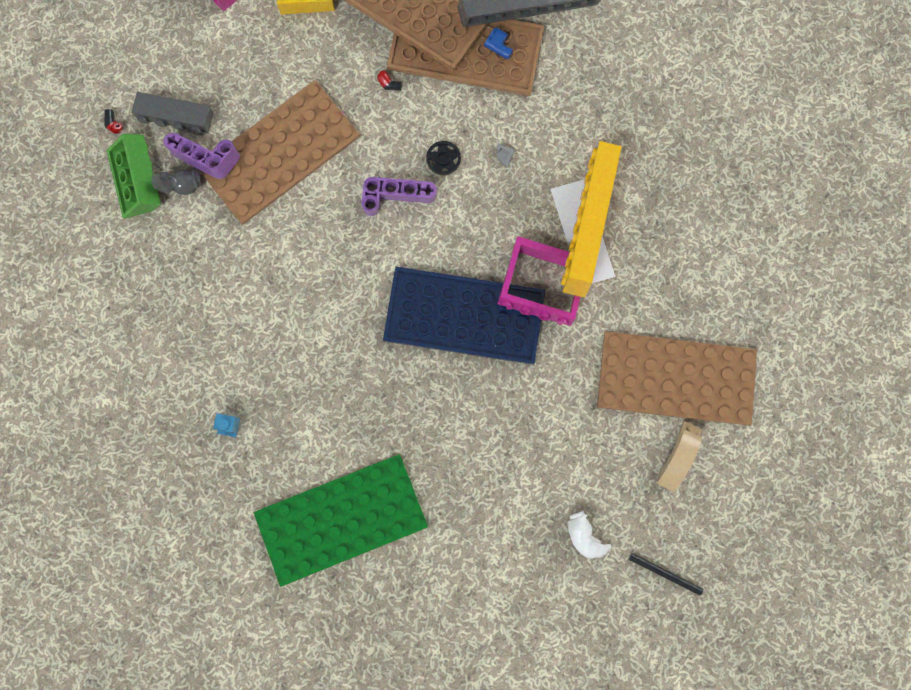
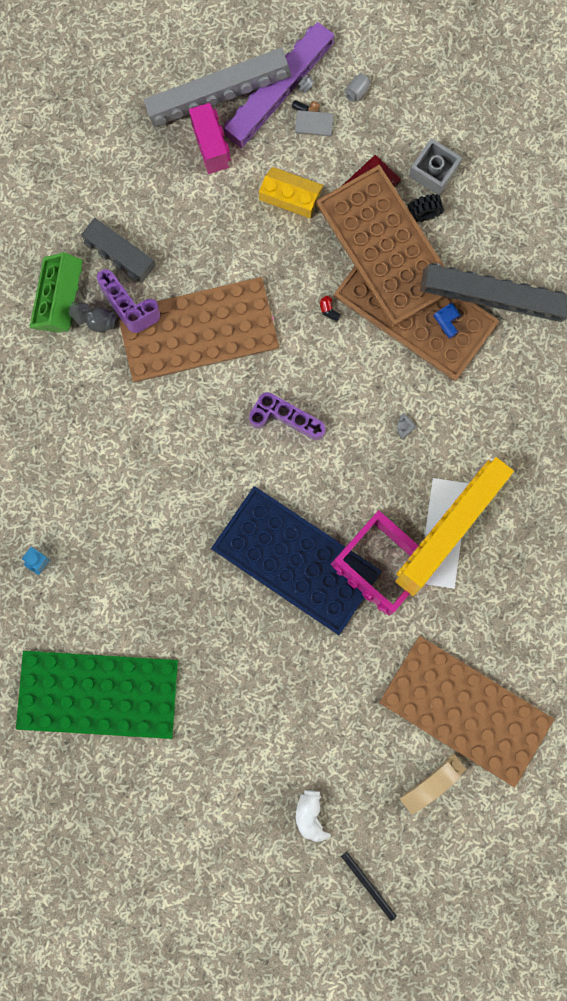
camera: 30 degrees right, 0 degrees up
(110, 123) = (57, 234): arm -> none
(443, 158) = (346, 403): black wheel -> none

